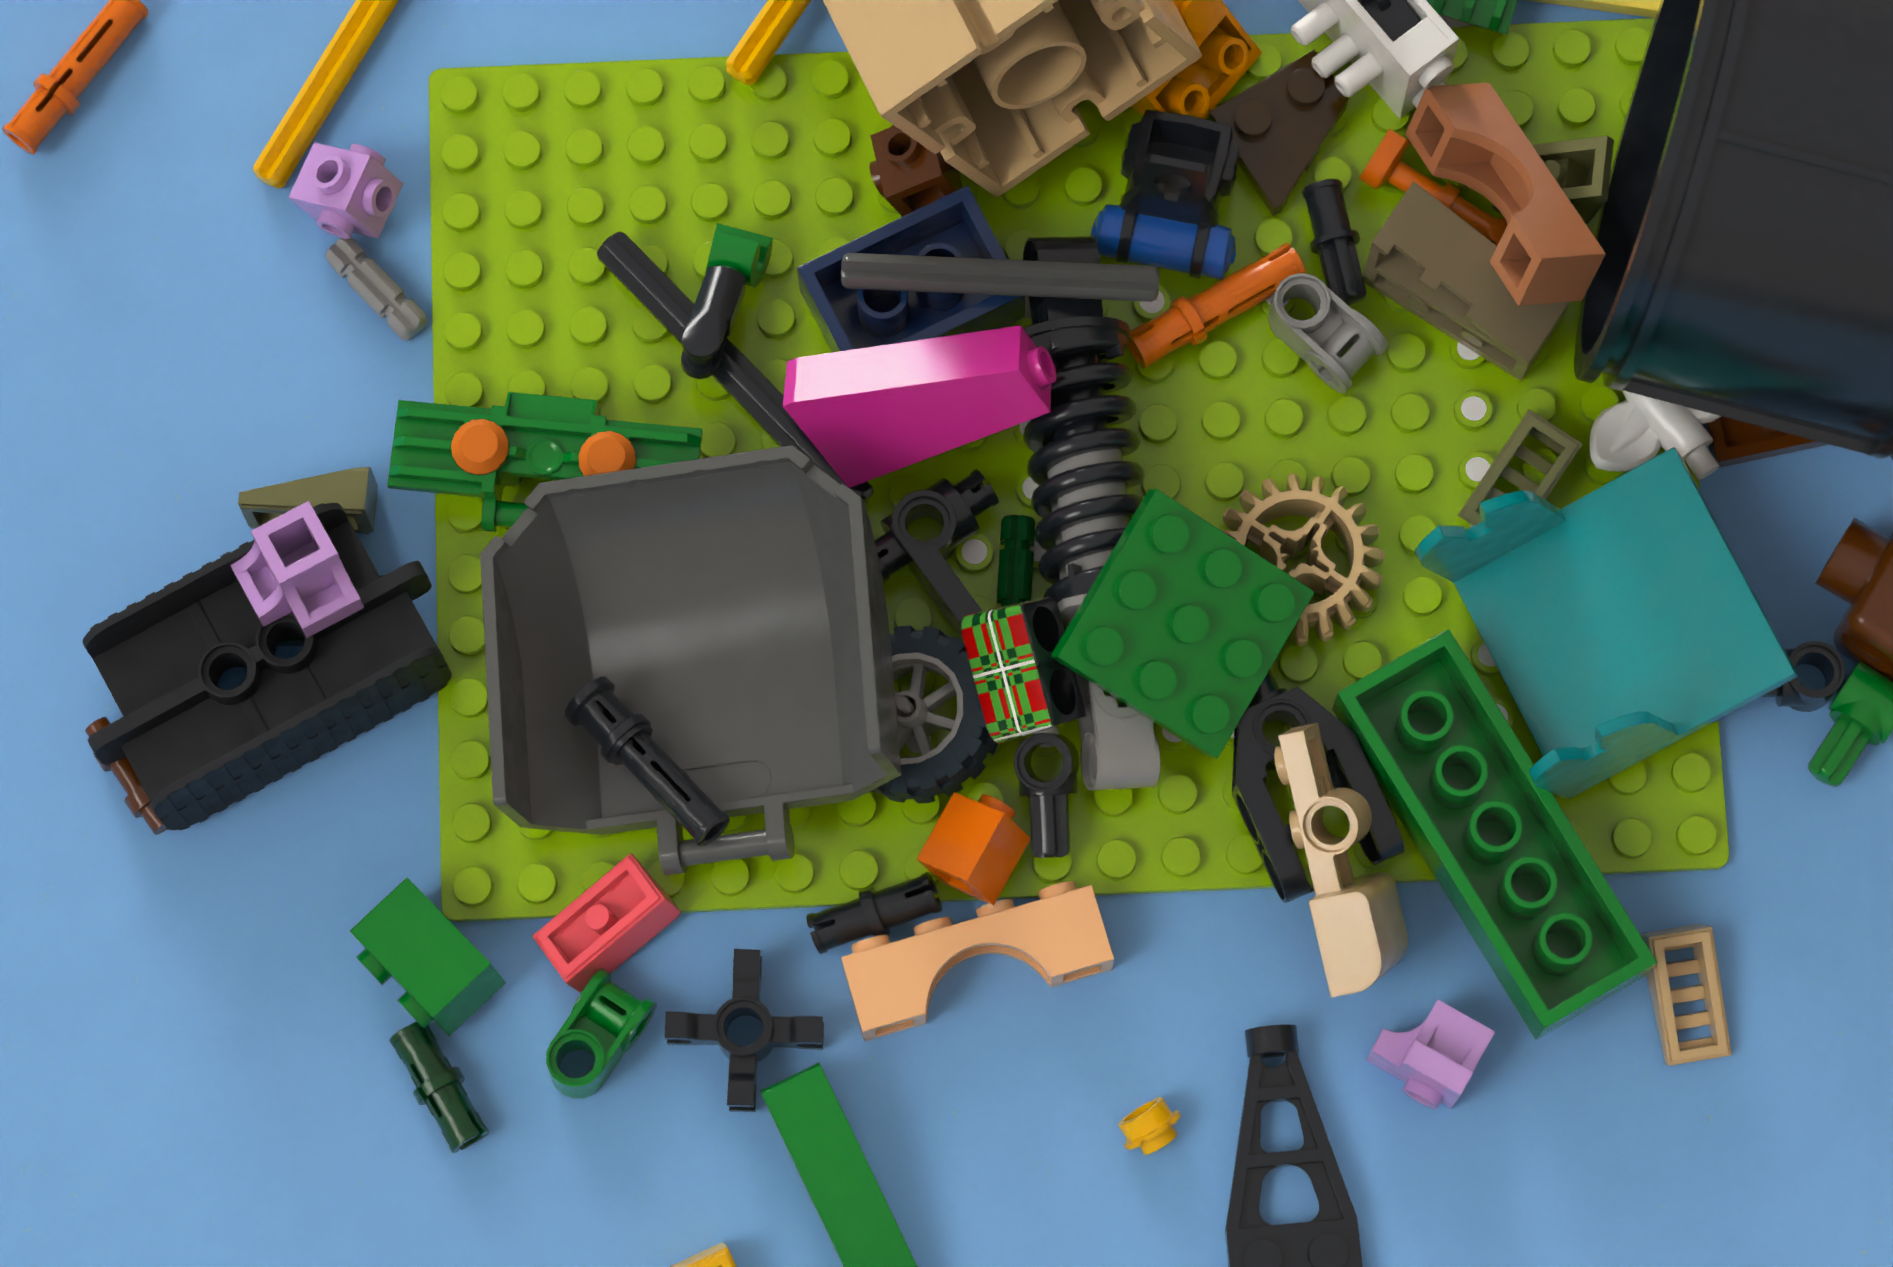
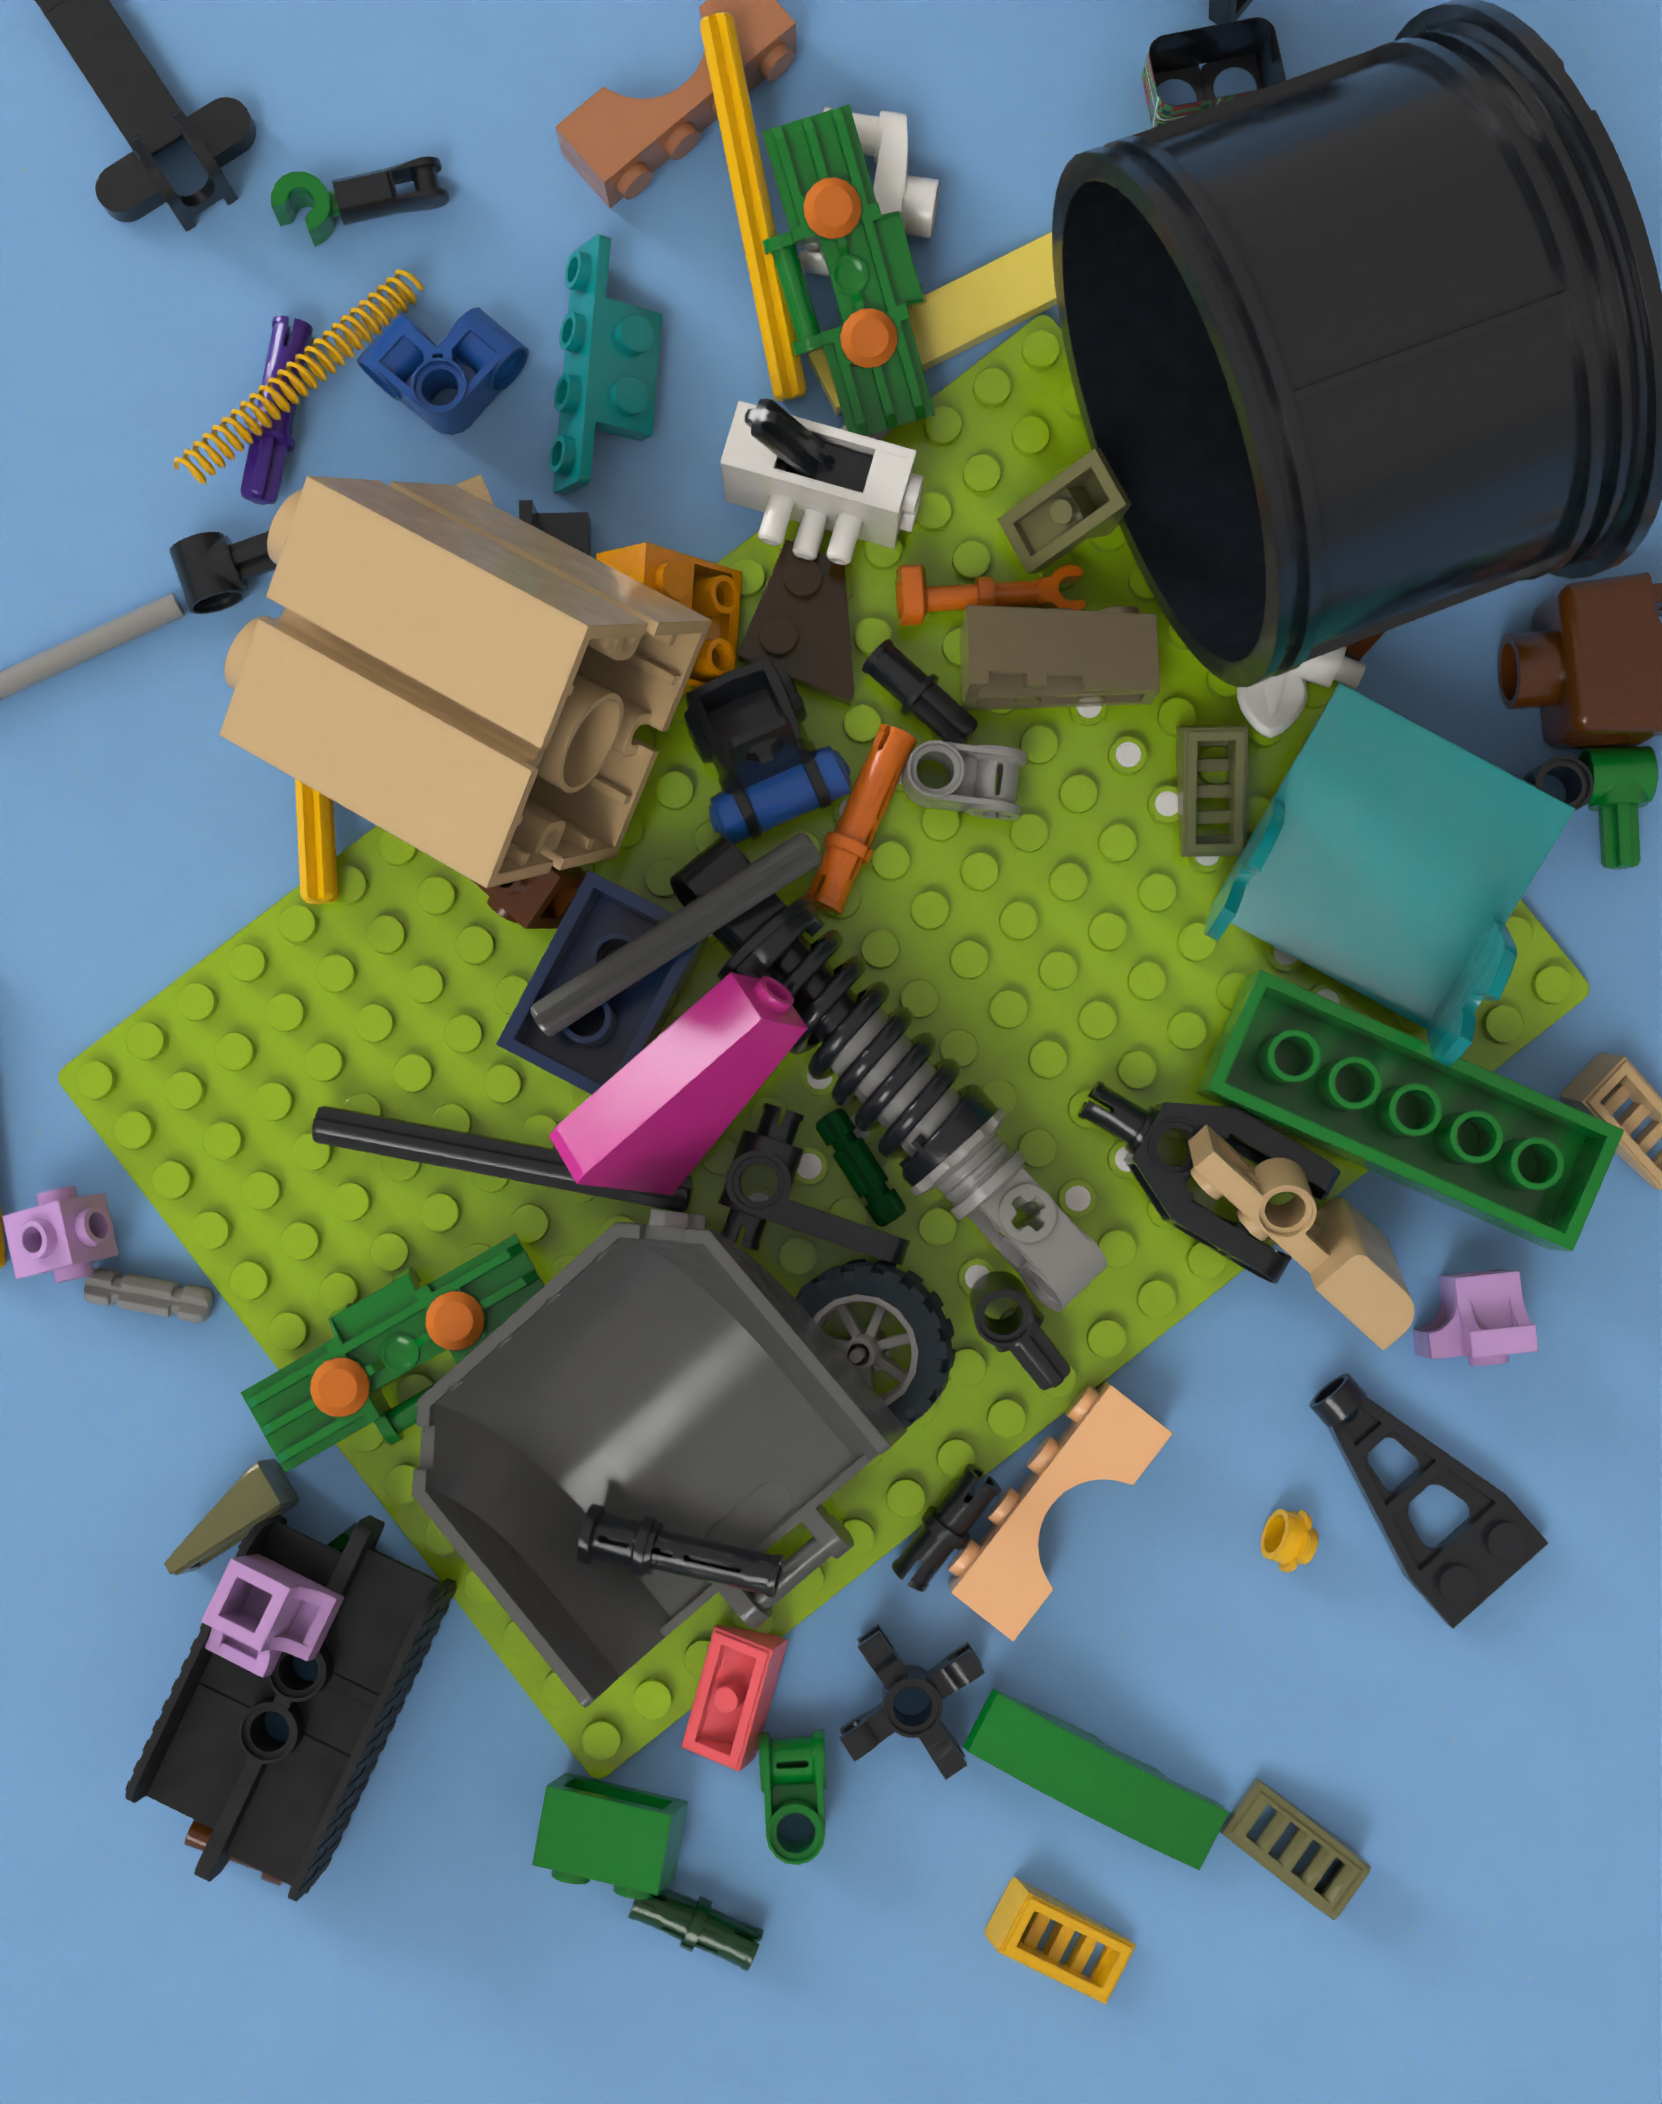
camera: 40 degrees left, 10 degrees up
(733, 262) = (435, 1065): black piece -> none
(974, 846) = (994, 1423): orange brick -> none
(1013, 670) = (934, 1256): piece -> none
(1182, 623) = (1041, 1125): green plate -> none
(1319, 571) = (1082, 958): tan gear -> none
(1475, 141) = (986, 529): nougat arch -> none

